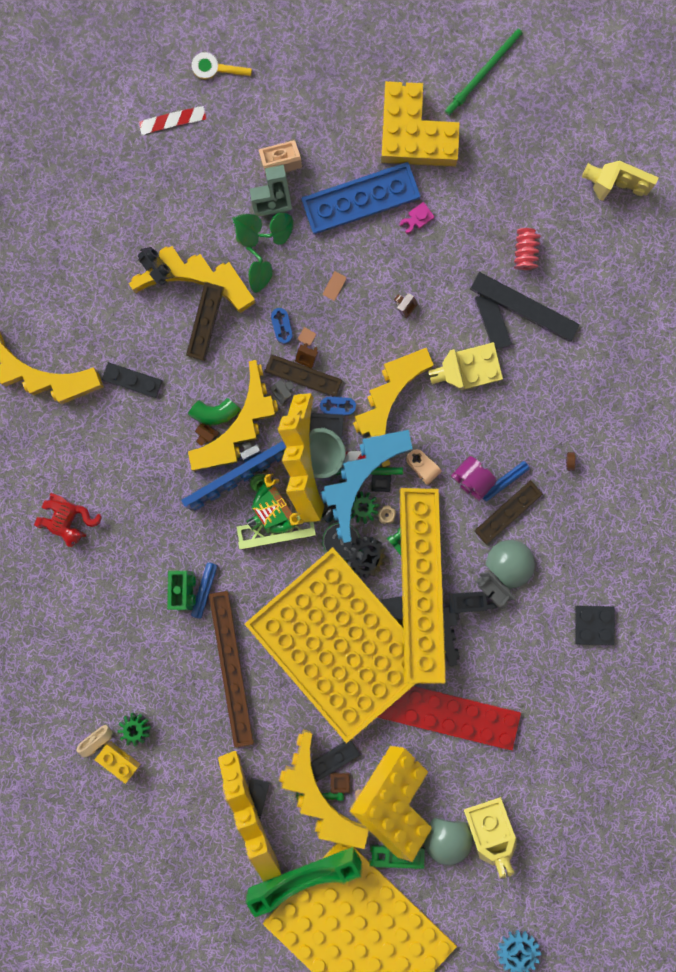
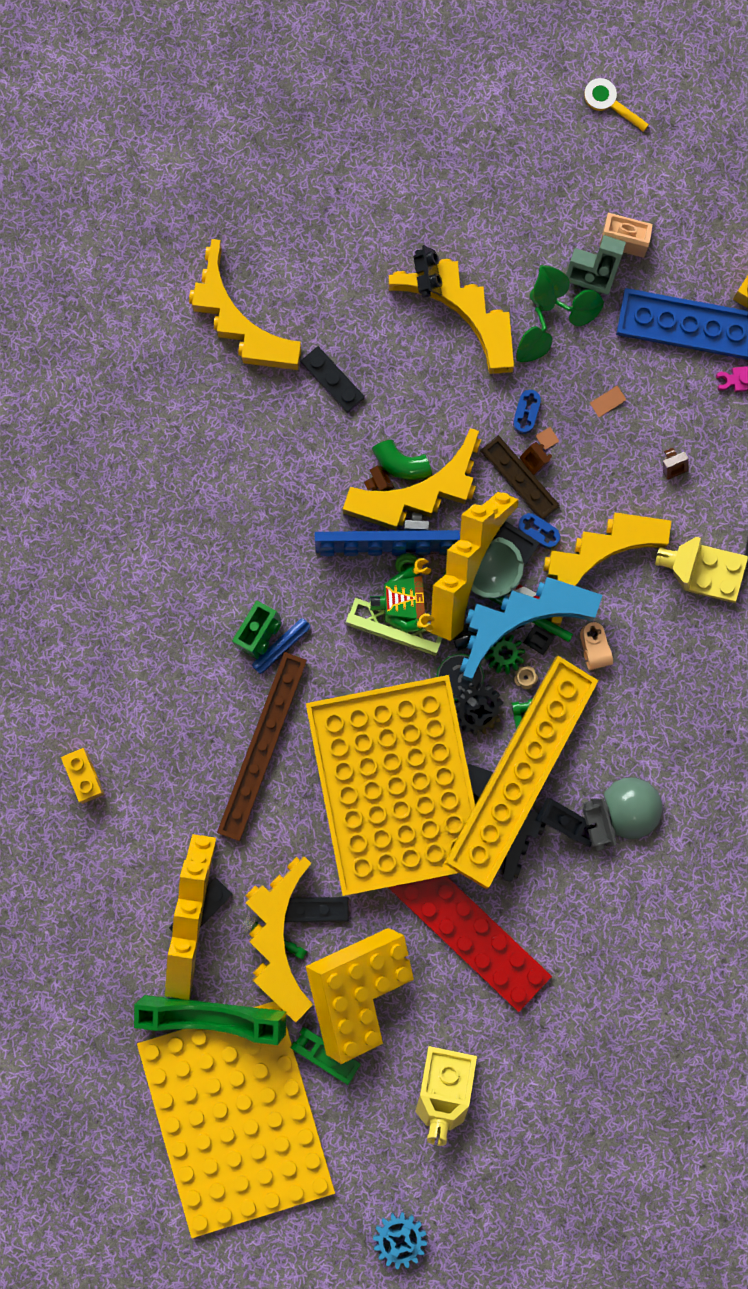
camera: 25 degrees right, 5 degrees down
(62, 518) = (176, 482): red animal -> none
(94, 741) = (69, 739): tan plate -> none
(127, 731) = (111, 751): green gear -> none
(172, 119) = (533, 131): sticker -> none
(205, 321) = (447, 360): dark brown tile -> none
(282, 391) = (488, 481): dark grey tile -> none
(340, 782) = (309, 938): reddish brown tile -> none
(448, 841) = (391, 1072): sand green cylinder -> none
(474, 478) = (644, 690): magenta brick -> none
(507, 479) = (676, 714): blue axle -> none
(508, 512) = (661, 750): dark brown tile -> none
(594, 625) = (687, 927): black plate -> none

